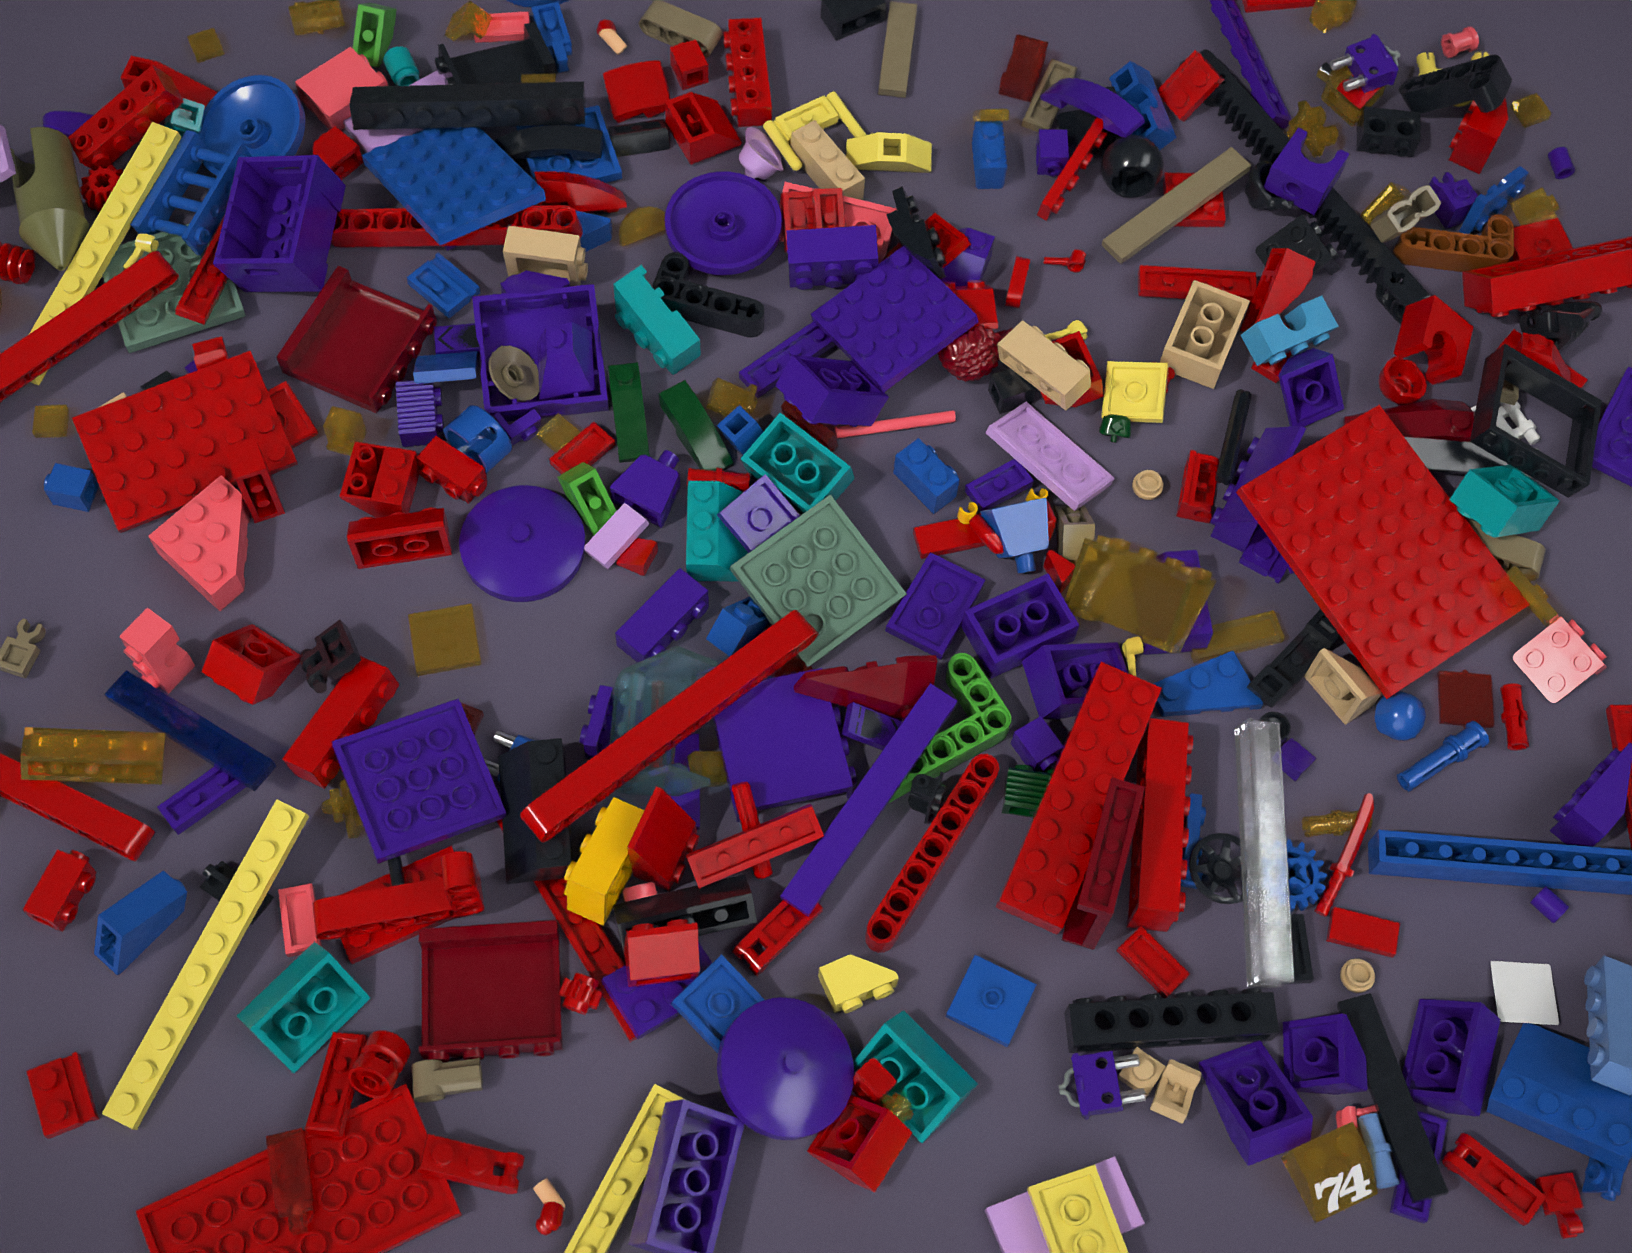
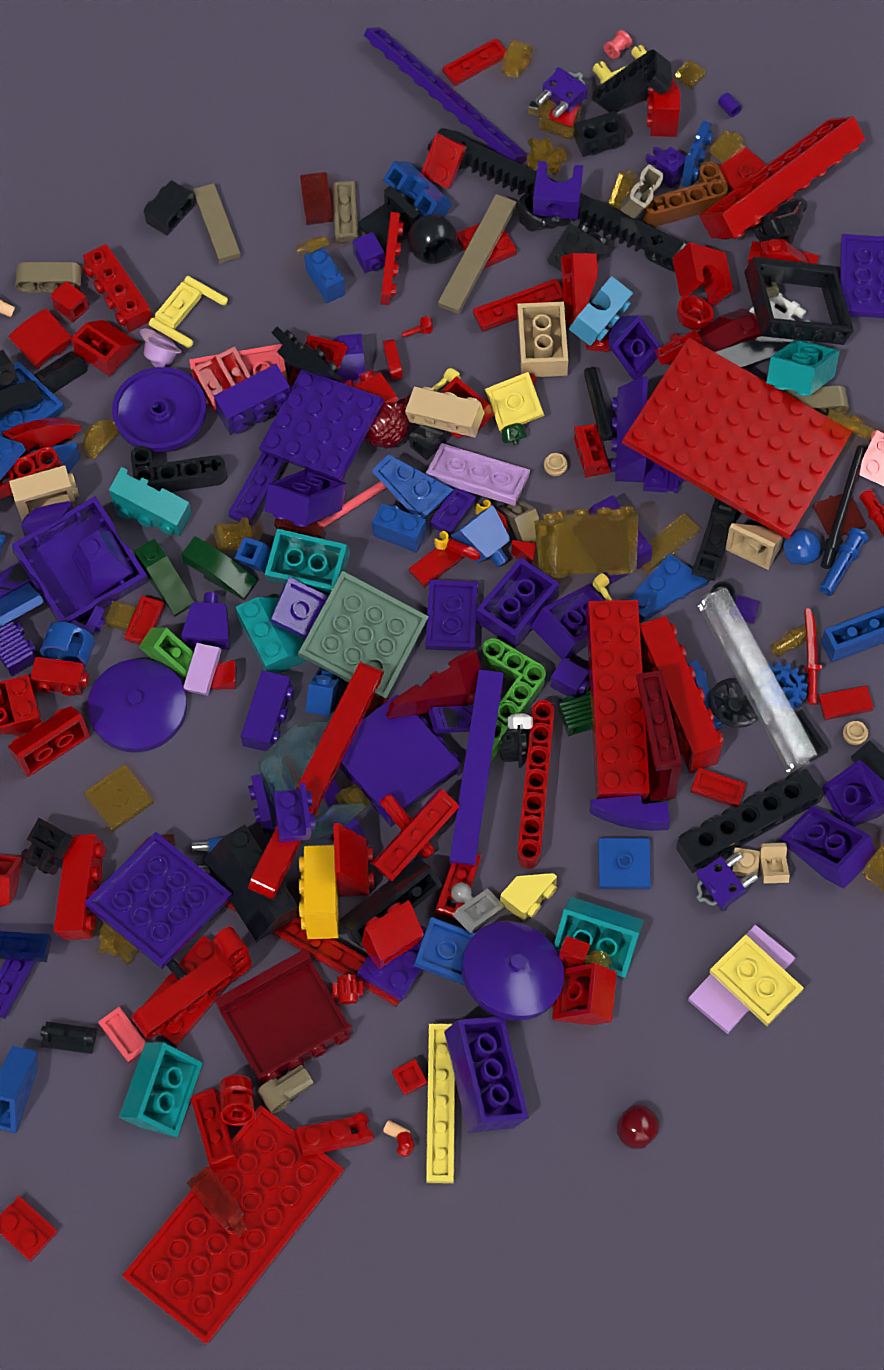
camera: 20 degrees left, 0 degrees up
(205, 965) = (78, 1093): light yellow plate -> none
(514, 373) = (68, 586): dark tan dish -> none
(597, 1138) = (409, 1077): none -> red plate
(615, 753) = (293, 814): none -> dark purple bracket
(639, 891) = (351, 903): coral tile -> none
(736, 480) = (264, 591): red pin -> none
(782, 971) = (475, 910): none -> light grey plate
(826, 162) = (210, 331): tan brick -> none
(889, 152) = (251, 305): light yellow slope -> none
(952, 768) = (524, 720): none -> white tile
(964, 436) = (411, 487): none -> blue wing
(1029, 943) = (631, 813): none -> dark purple slope
(1097, 100) = (384, 202): dark purple slope -> none
(1345, 413) = (668, 352): none -> red plate
(1439, 728) = (831, 544): none -> black bar

